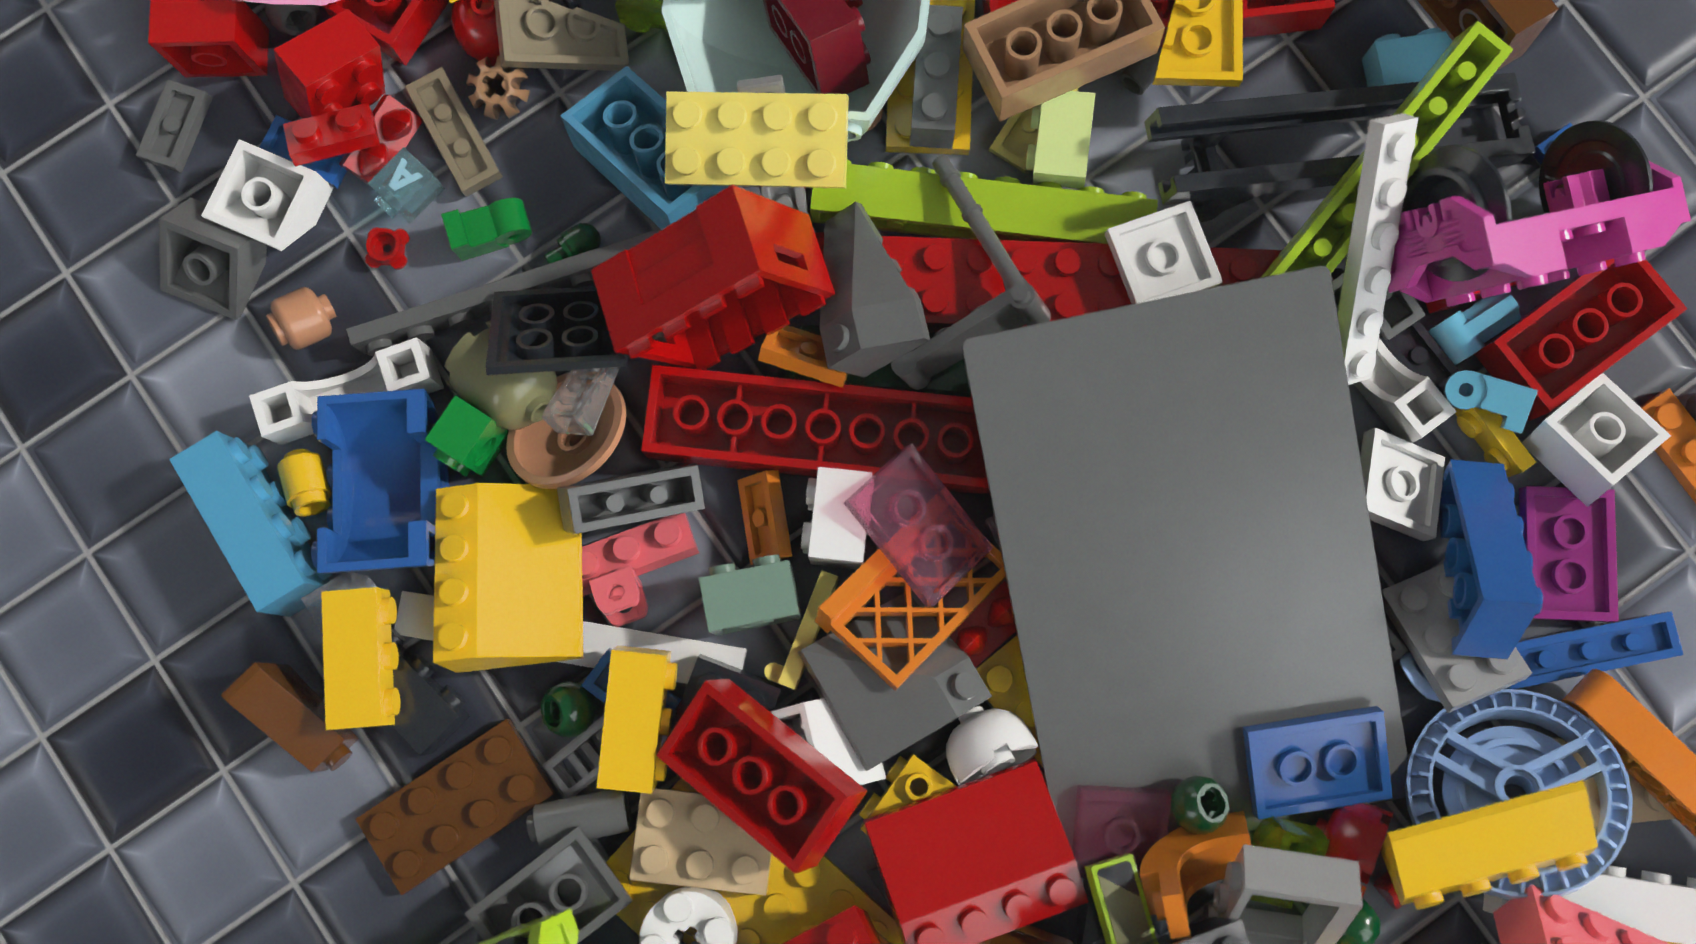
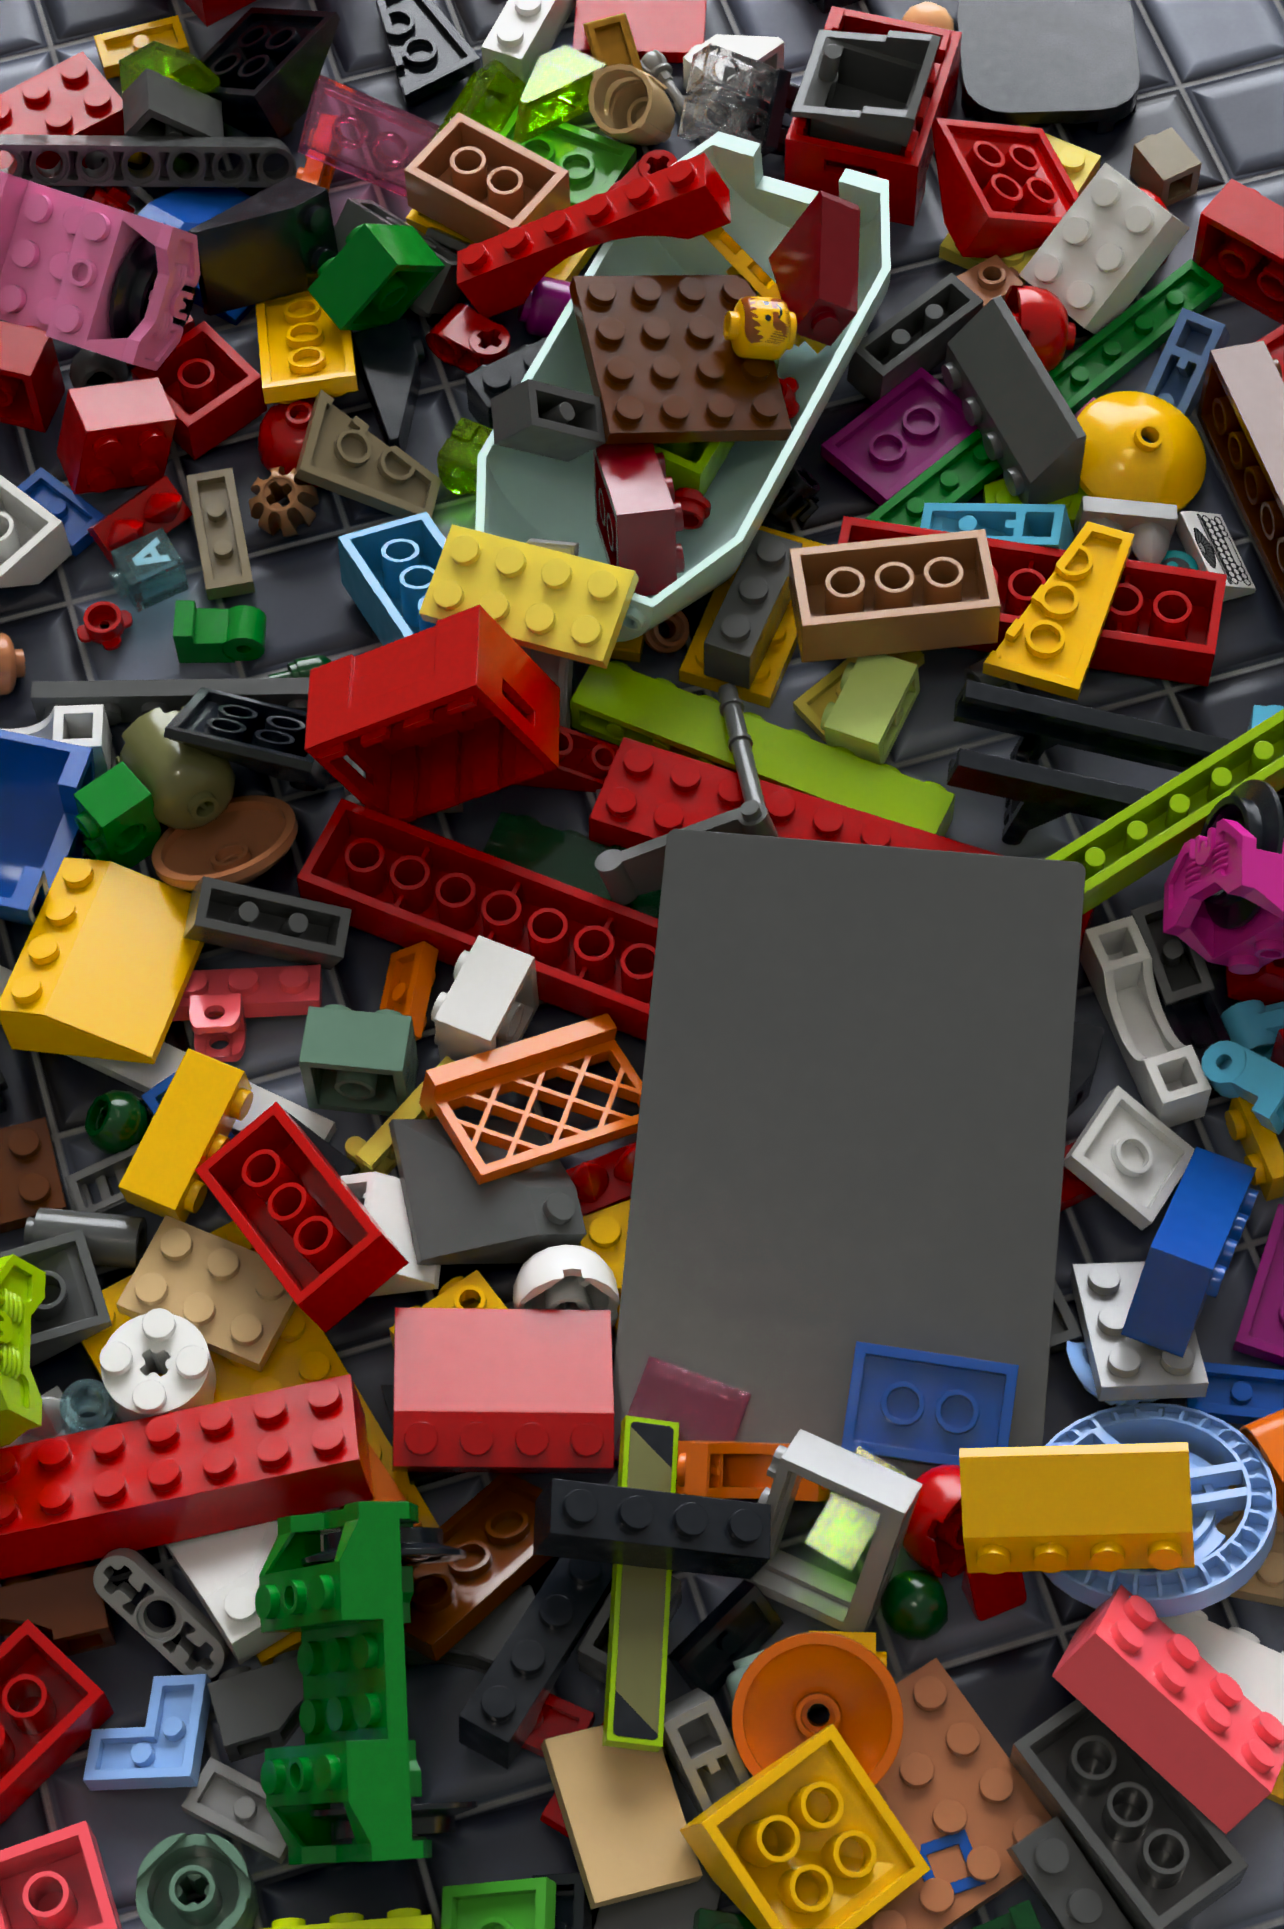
camera: 15 degrees right, 20 degrees down
(331, 134) = (92, 491): red plate -> none
(579, 414) = (254, 811): clear slope -> none
(800, 353) = (511, 832): orange plate -> none
(873, 309) = (593, 794): dark grey wedge -> none
(918, 525) = (566, 1028): clear pink tile -> none
(1163, 254) = (930, 819): white plate -> none
(1199, 804) = (777, 1409): dark green piece -> none
(1374, 240) = (1147, 879): white plate -> none

